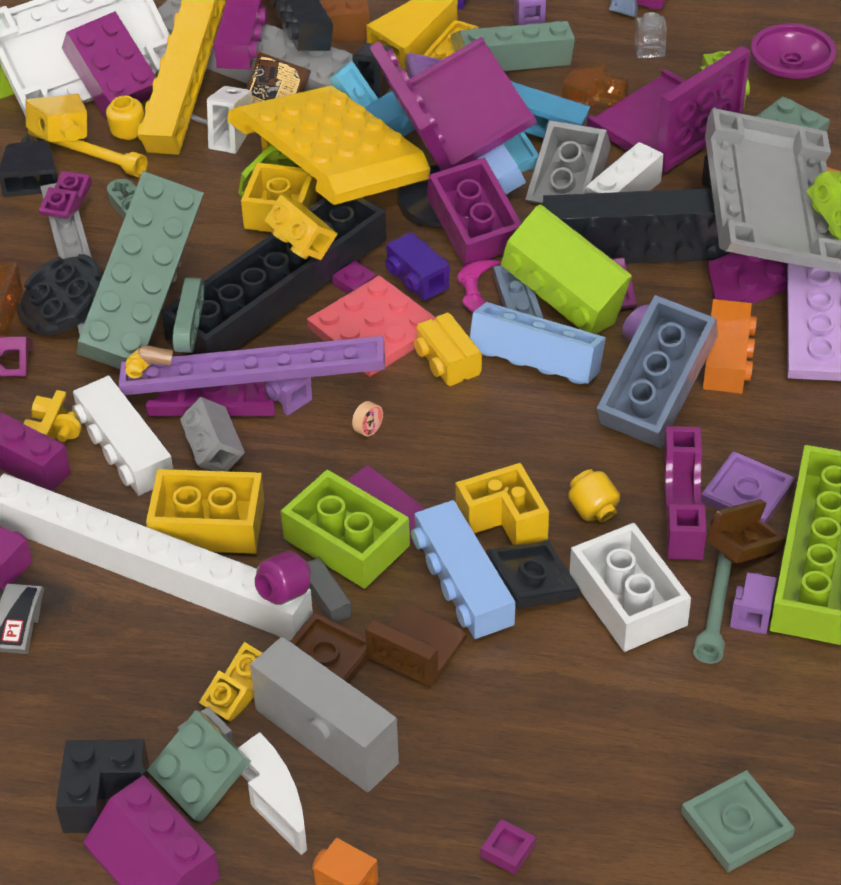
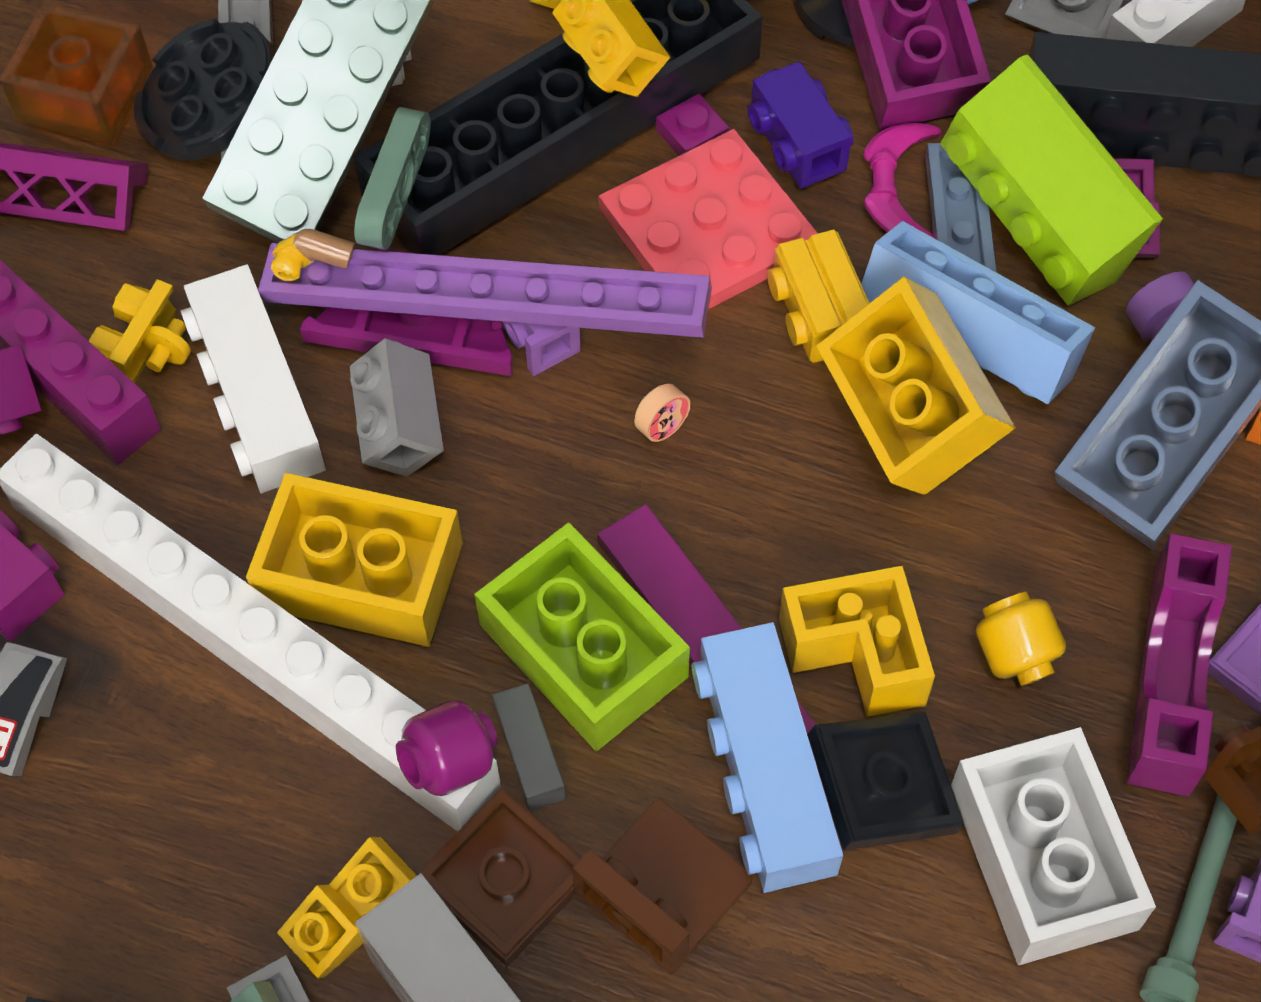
camera: 10 degrees right, 15 degrees up
(510, 380) = (914, 387): none -> yellow brick

